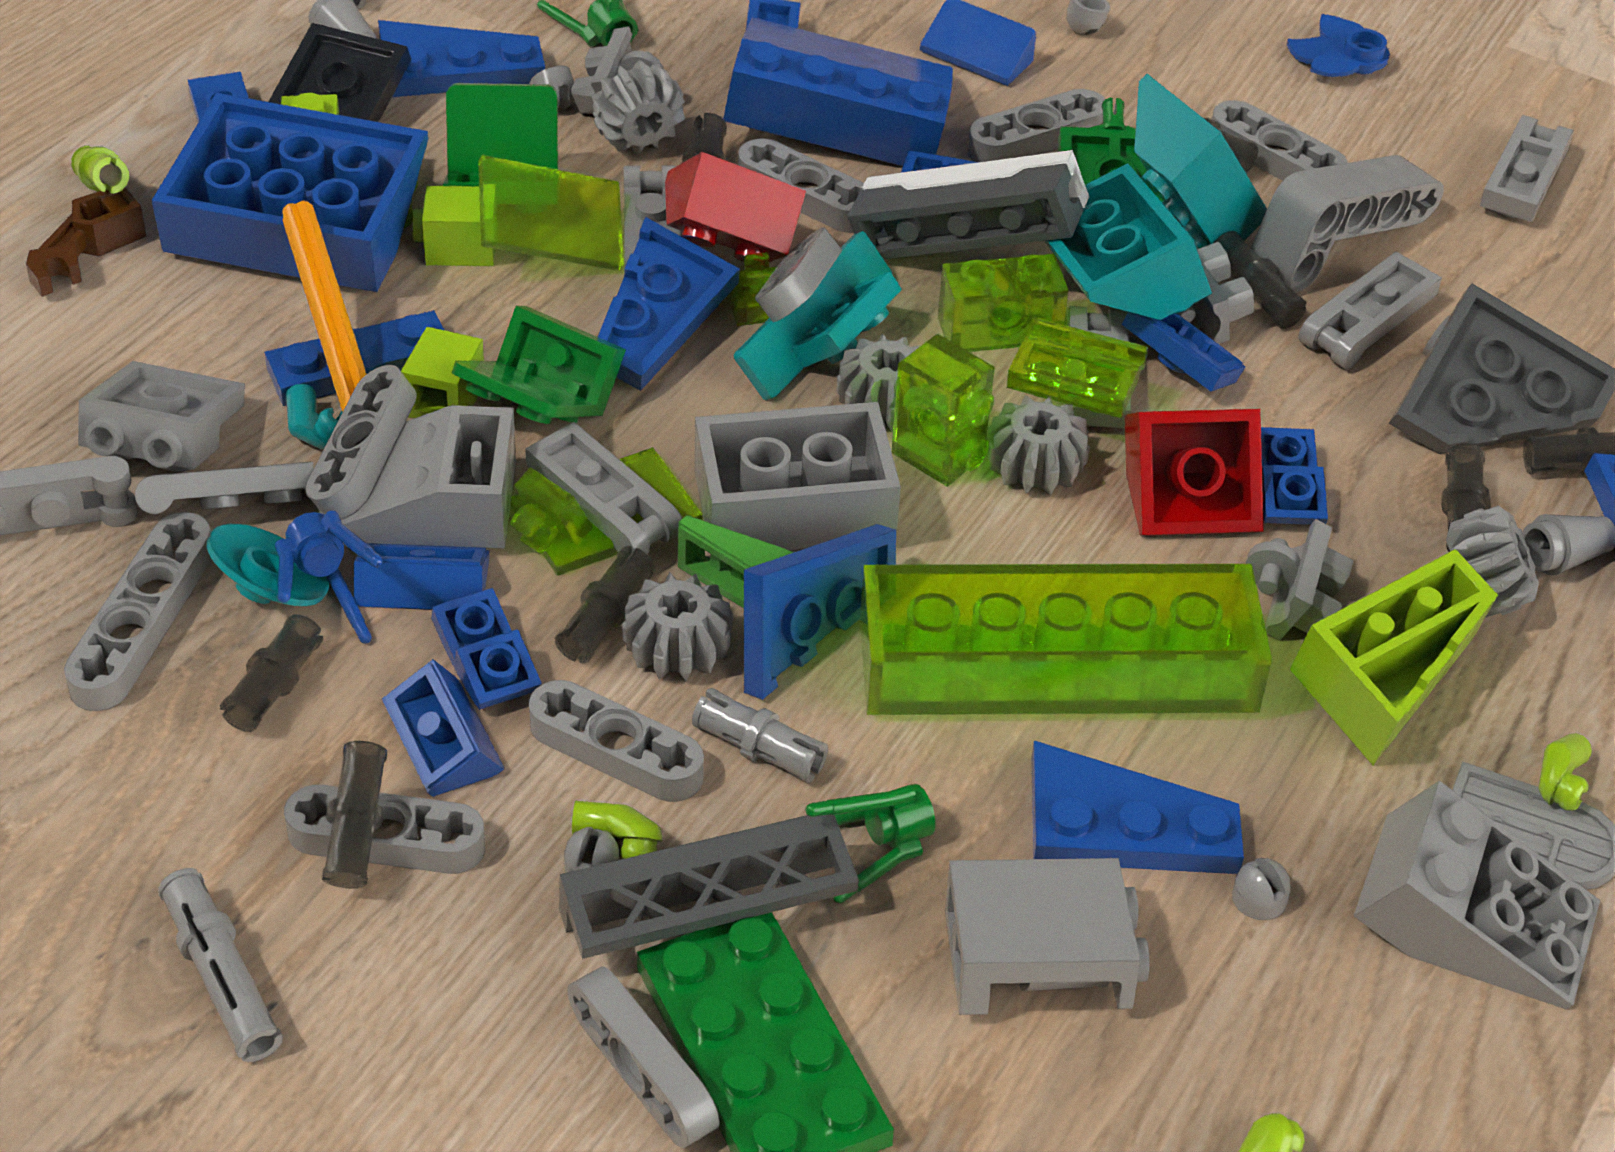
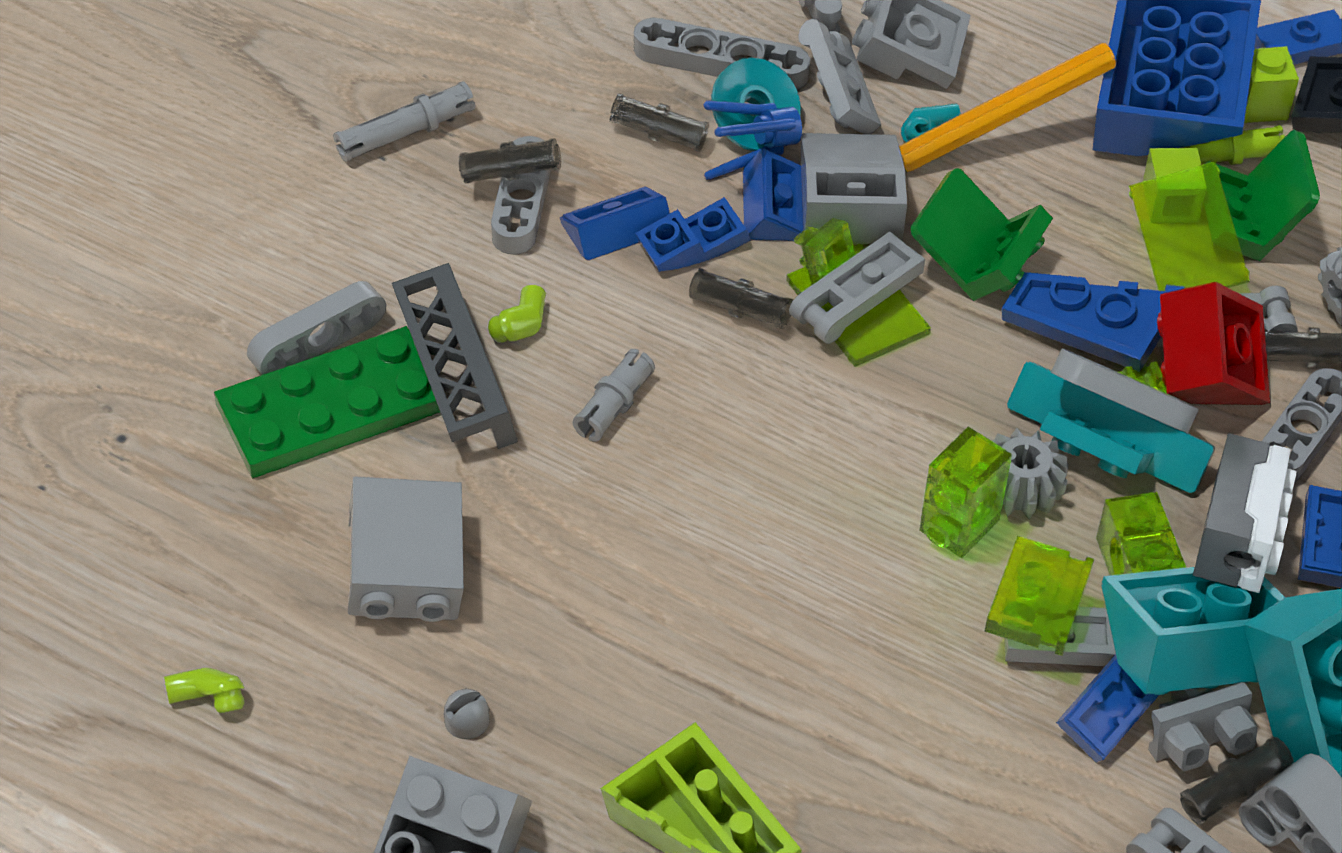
camera: 90 degrees right, 5 degrees up
(350, 469) = (877, 133): light grey beam -> none
(378, 344) = (1017, 156): blue plate -> none
(431, 367) = (992, 176): lime brick -> none
(590, 839) = (495, 299): light grey hinge -> none
(629, 764) = (605, 332): light grey beam -> none
(677, 626) = (715, 338): light grey gear -> none
(729, 555) = (775, 379): bright green slope -> none
(797, 473) = (875, 399): light grey brick -> none
(803, 599) = (738, 406): blue wing -> none
(891, 818) = (527, 471): green plant -> none
(1038, 444) = (956, 579): light grey gear -> none
(1062, 639) = (706, 577): clear neon green brick -> none
(1112, 812) = (538, 626): blue wing -> none
(1195, 471) = (941, 695): red slope -> none
(1290, 477) = (943, 784): blue slope -> none
(1296, 575) = (828, 774): light grey hips -> none

